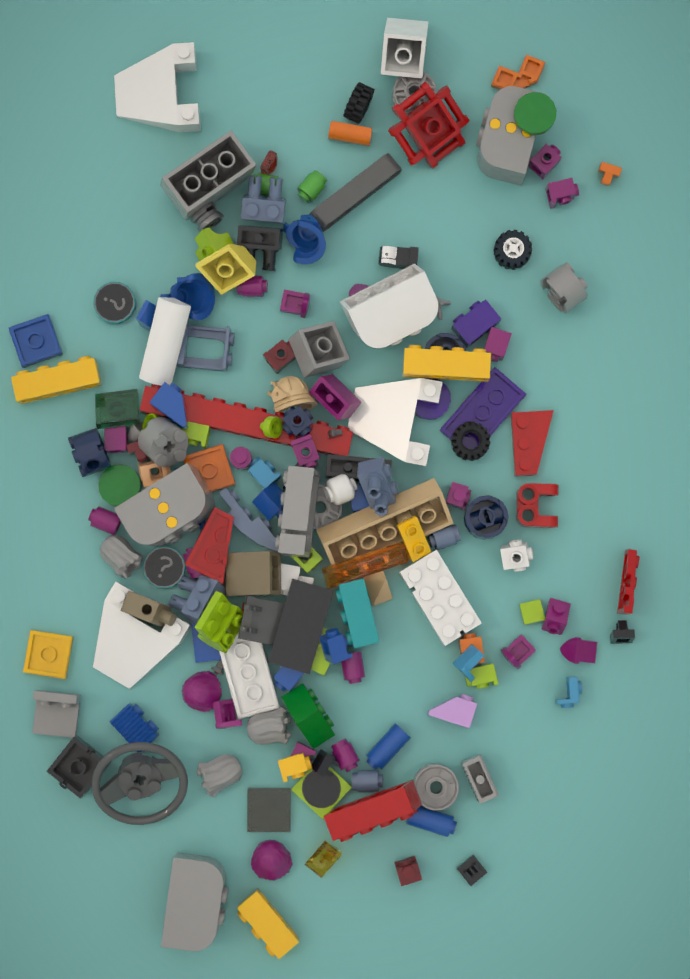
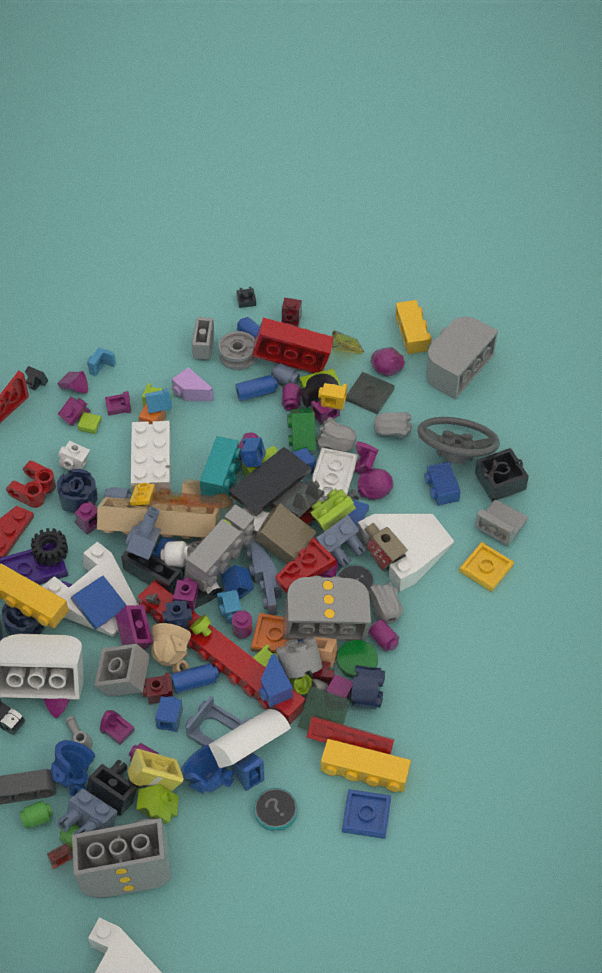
camera: 150 degrees left, 30 degrees down
(82, 398) = (324, 729): none -> red tile
(254, 383) = (194, 678): none -> blue brick
(256, 337) = (169, 713): none -> blue brick
(323, 277) = (71, 722): none -> light grey bar
(382, 404) = (98, 602): none -> blue tile

